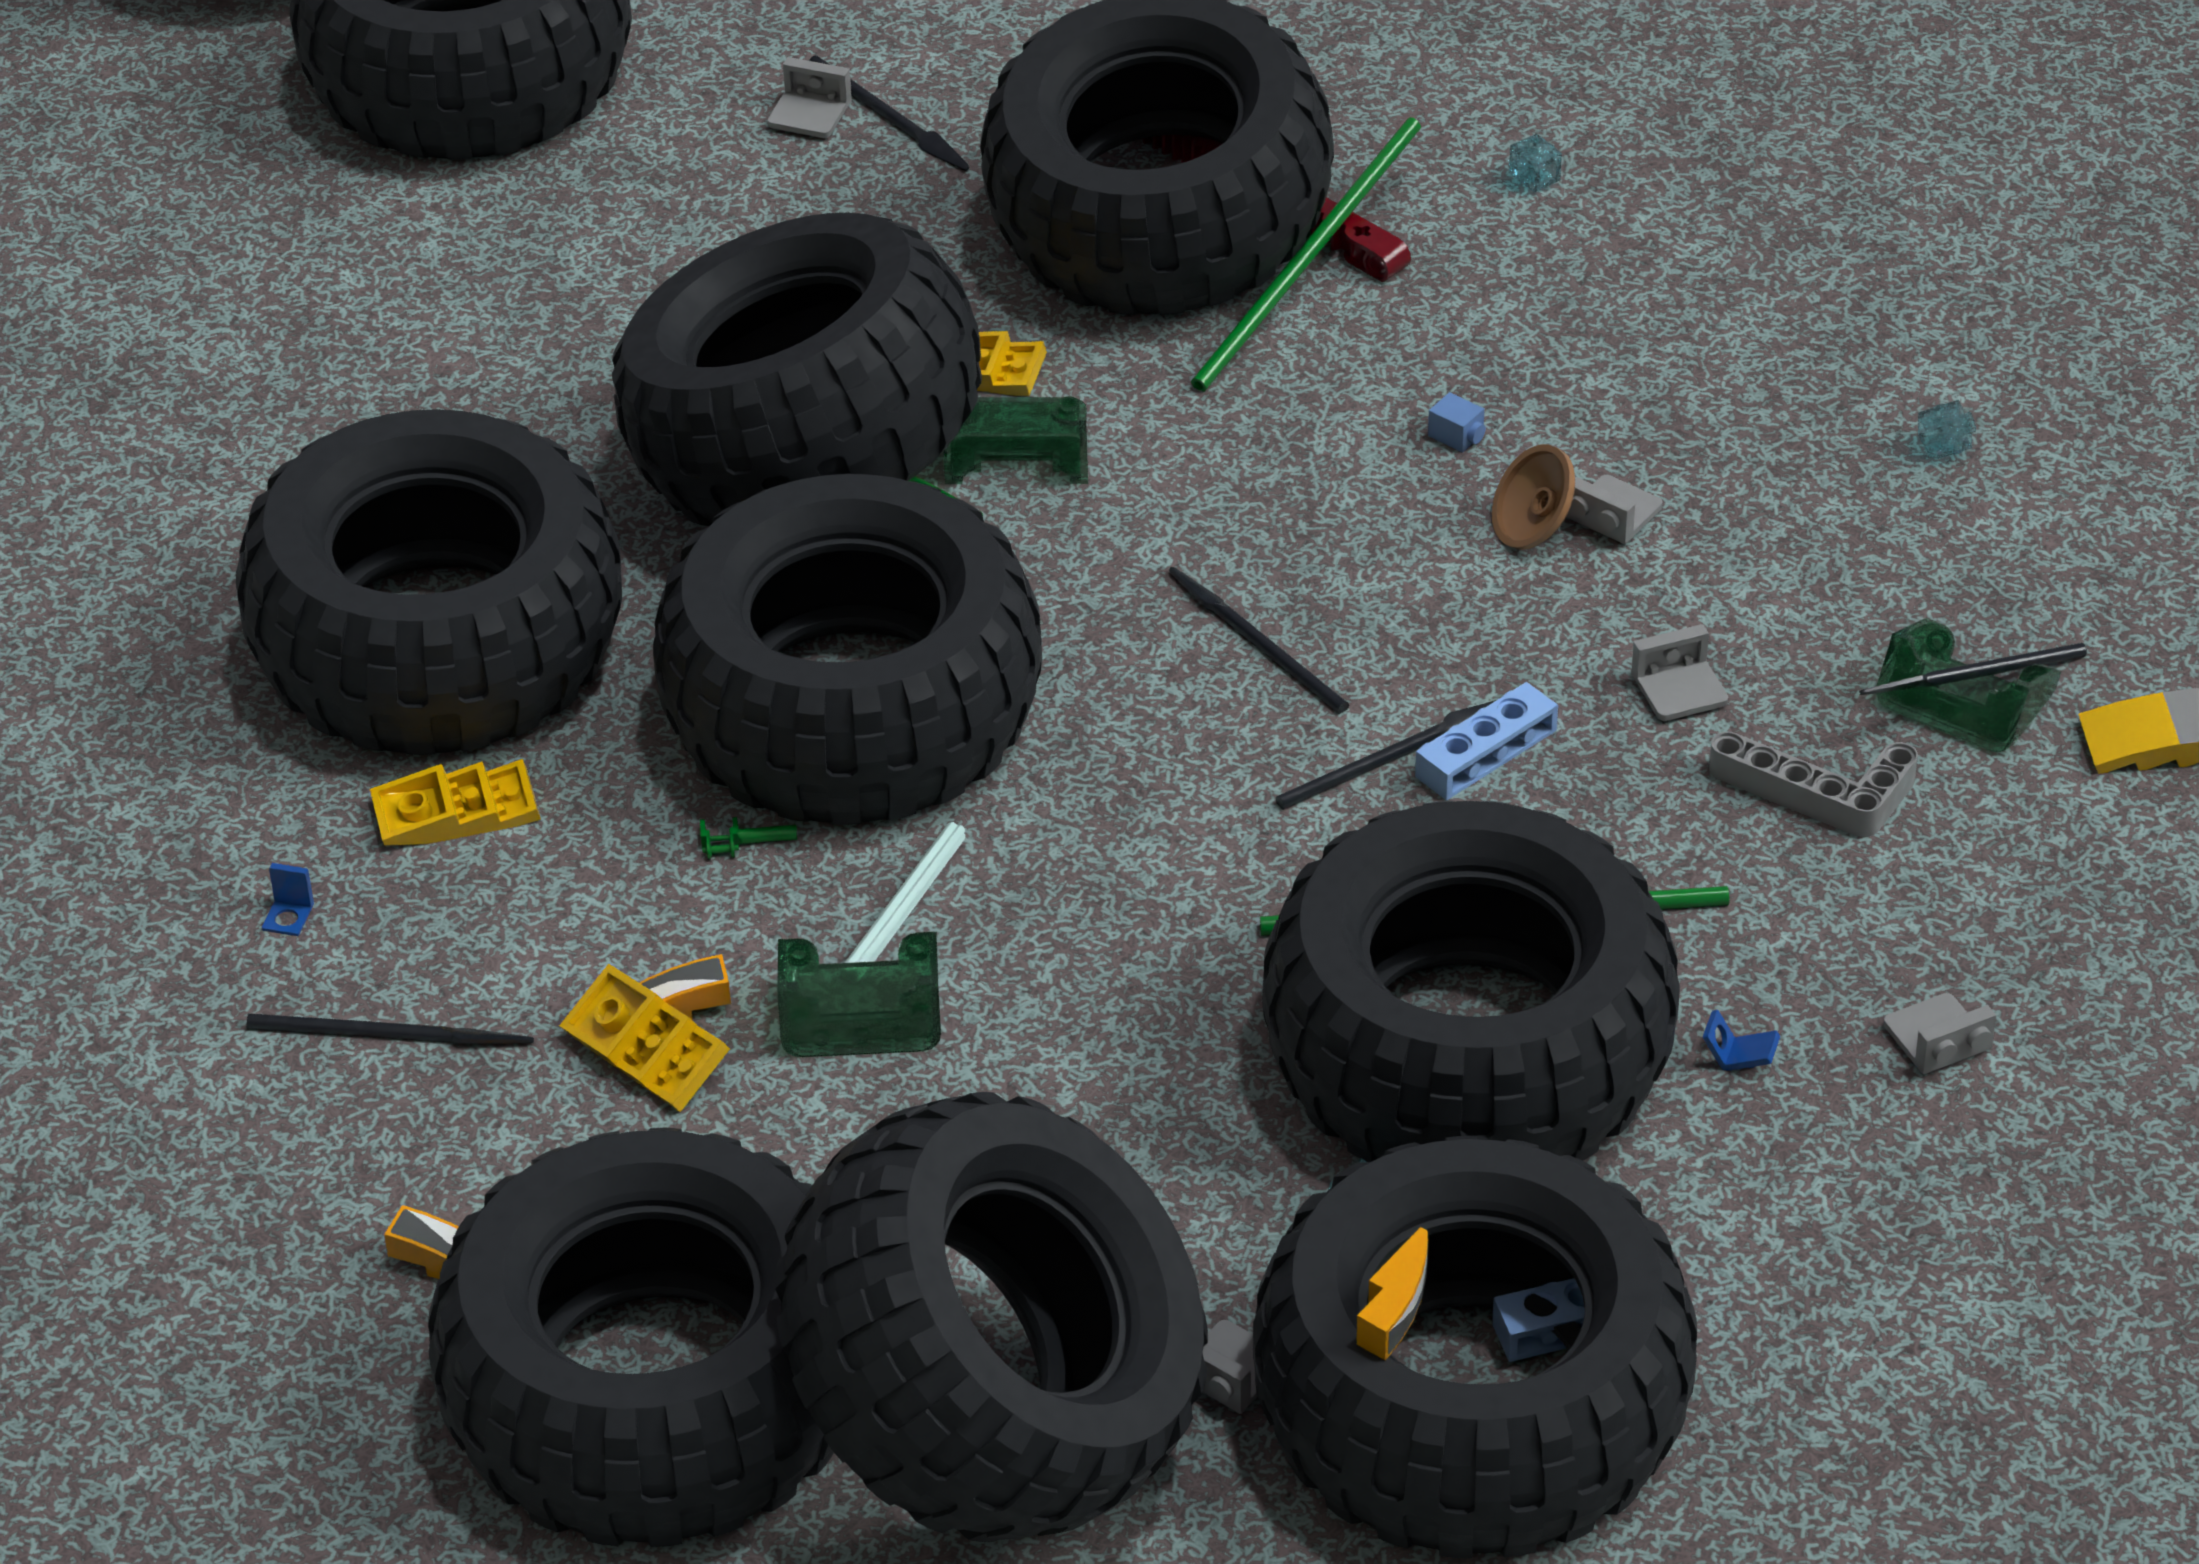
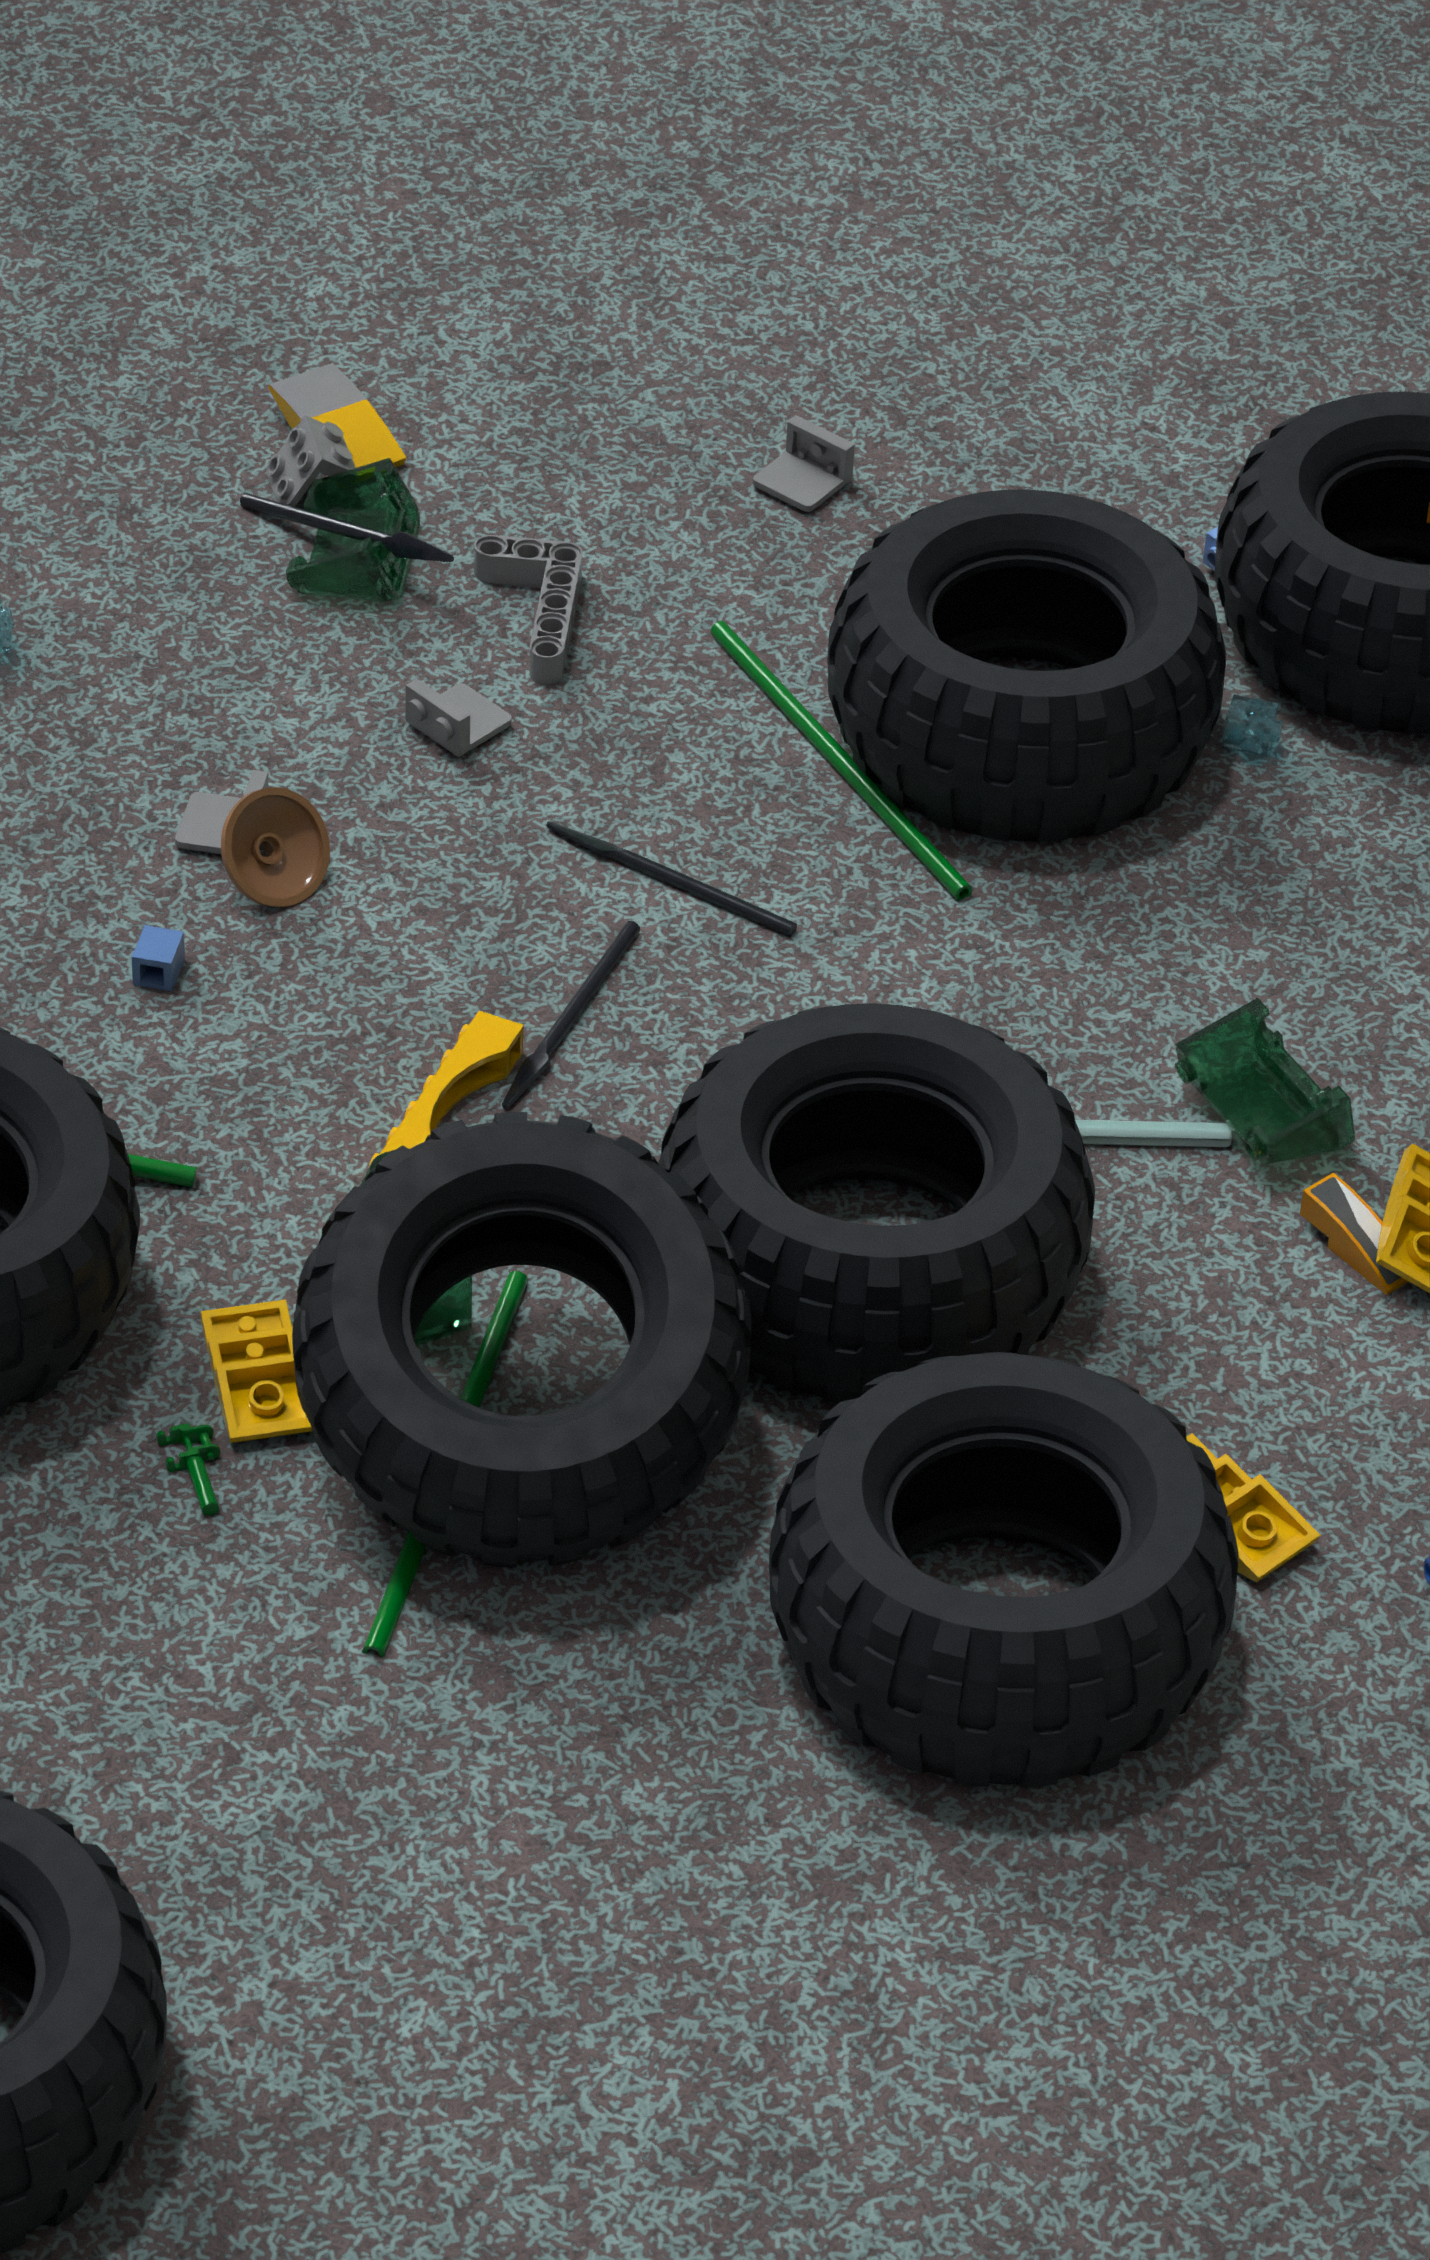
camera: 120 degrees left, 0 degrees up
(744, 836) = (1111, 1283): green piece -> none
(1135, 489) = (481, 1056): none -> yellow arch
(1486, 740) = (628, 810): light blue brick -> none
(2092, 680) = (308, 451): none -> light grey bracket

